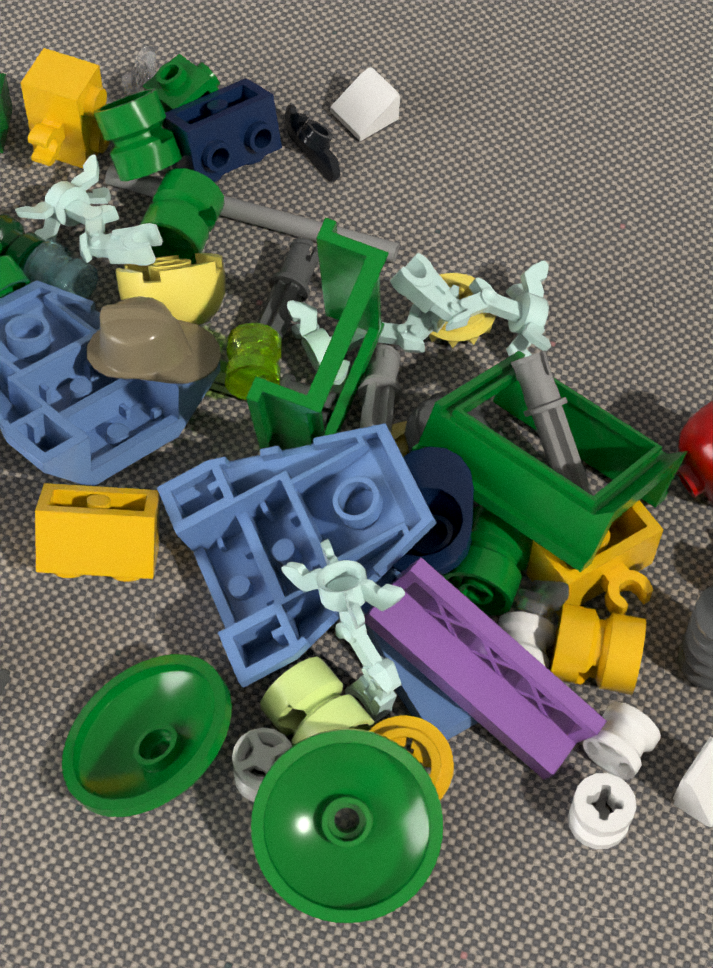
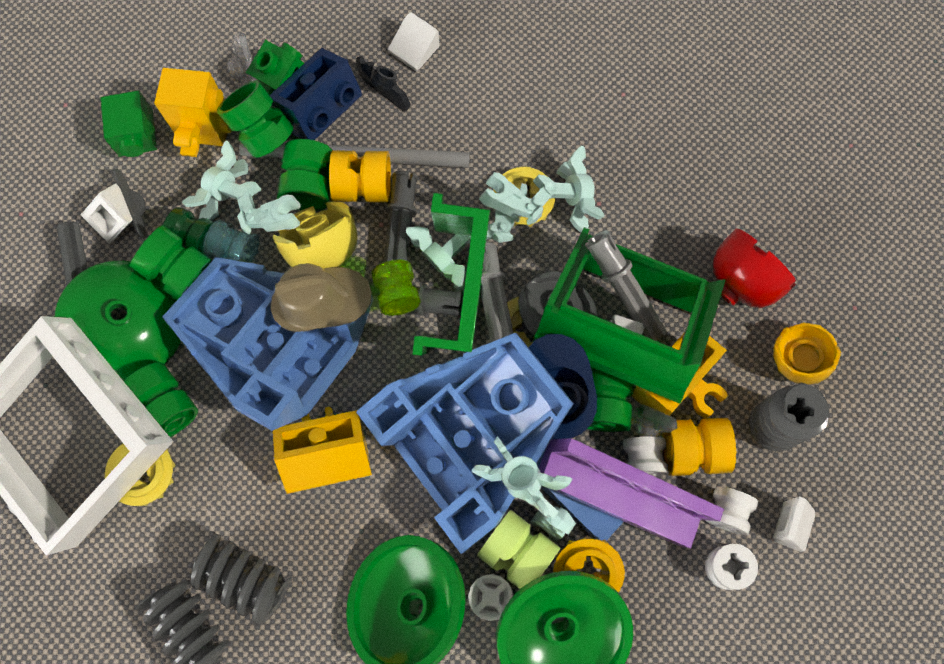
camera: 10 degrees left, 15 degrees up
(249, 234) = (360, 176): none -> yellow wheel

